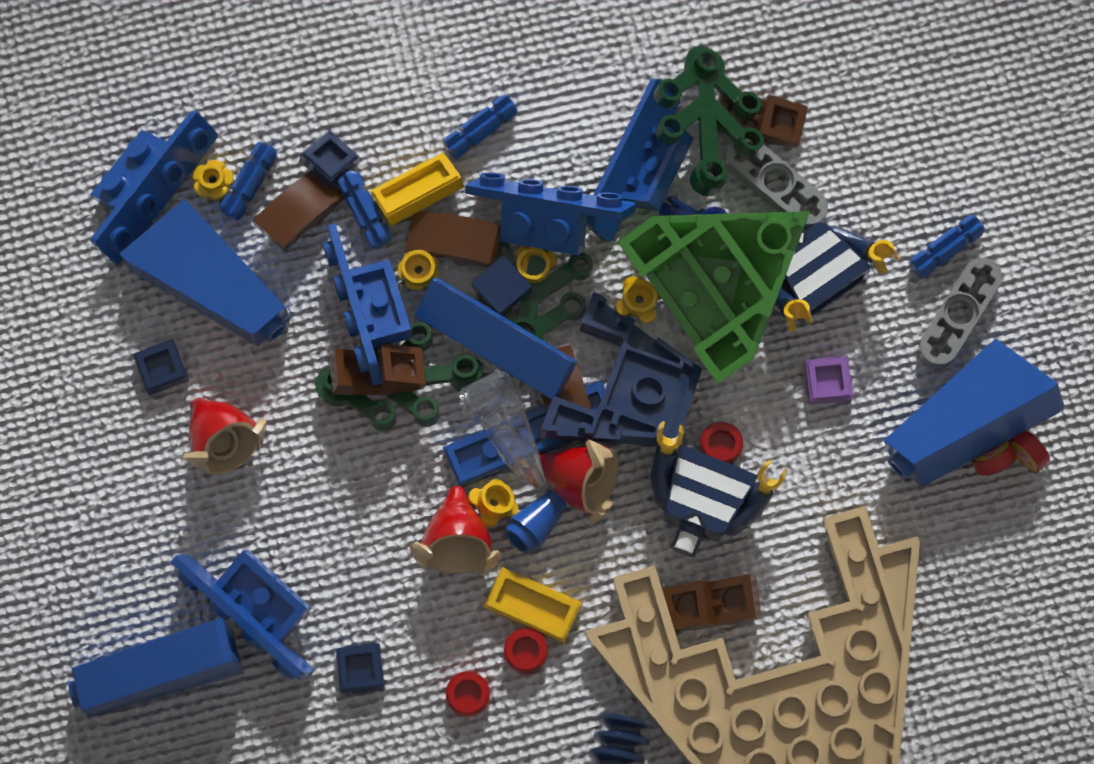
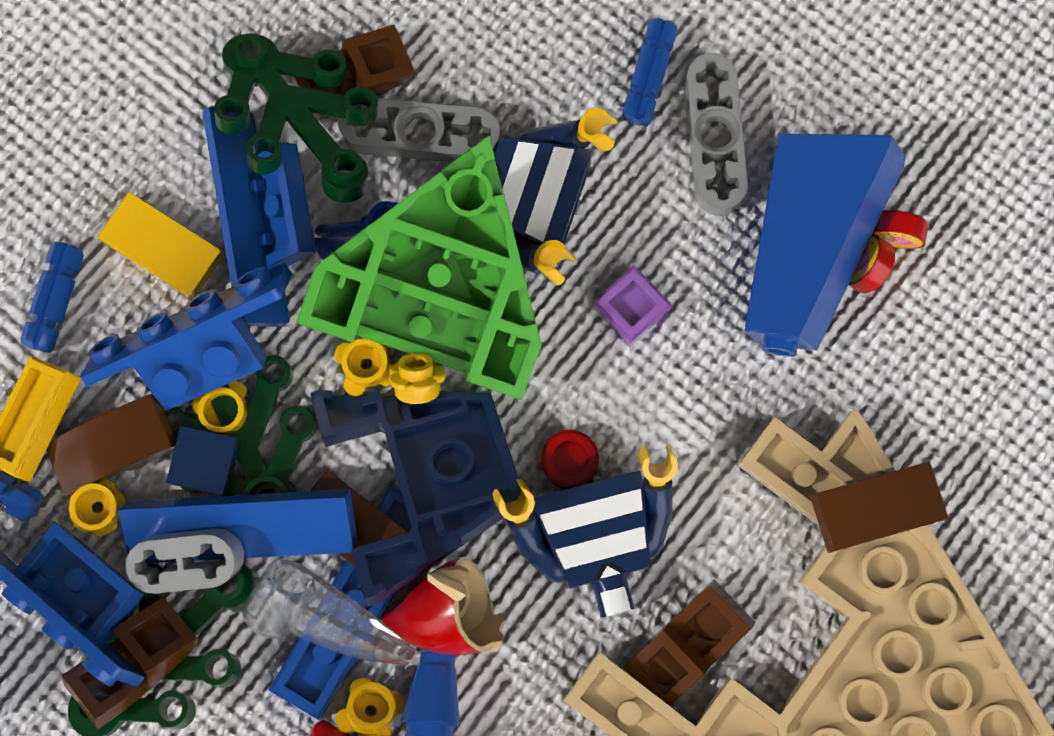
camera: 35 degrees left, 5 degrees up
(446, 343) = (183, 548): none -> light grey beam
(567, 141) = (160, 246): none -> yellow tile
(664, 328) = (416, 378): none -> yellow plate
(887, 600) = (878, 507): none -> reddish brown slope

